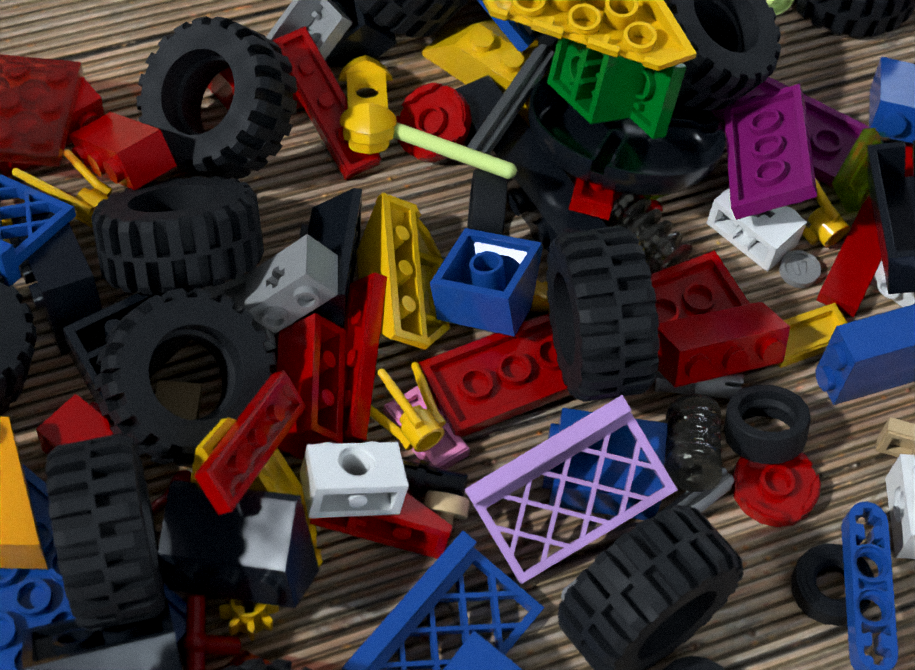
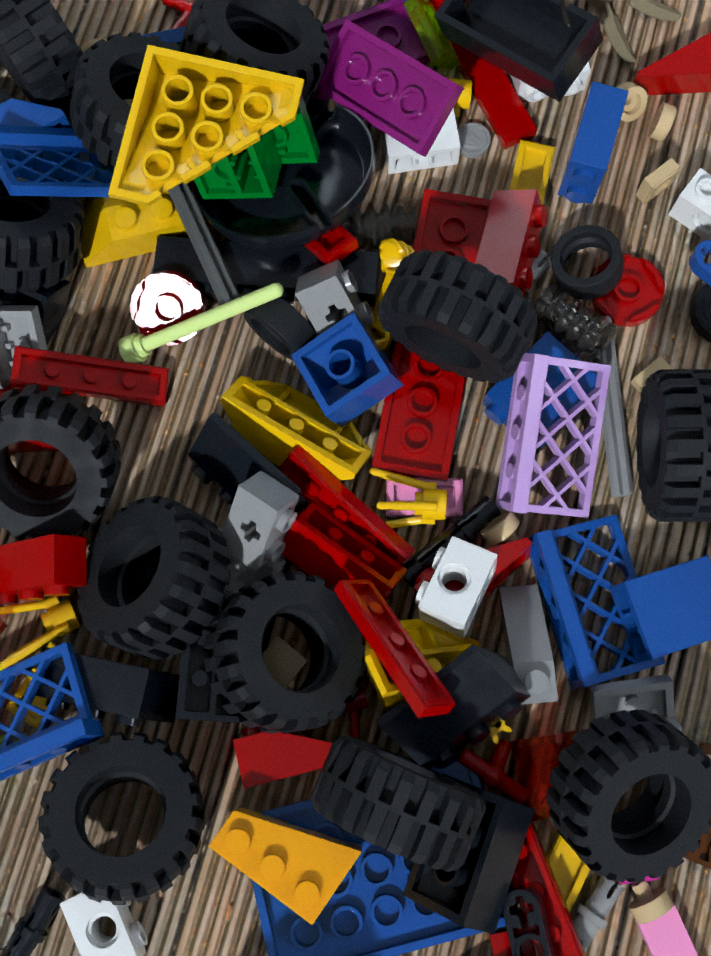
camera: 45 degrees left, 20 degrees up
(344, 604) = (528, 641): none -> light grey slope
(367, 121) = (134, 355): yellow piece -> none
(541, 219) = (330, 296): none -> light grey brick

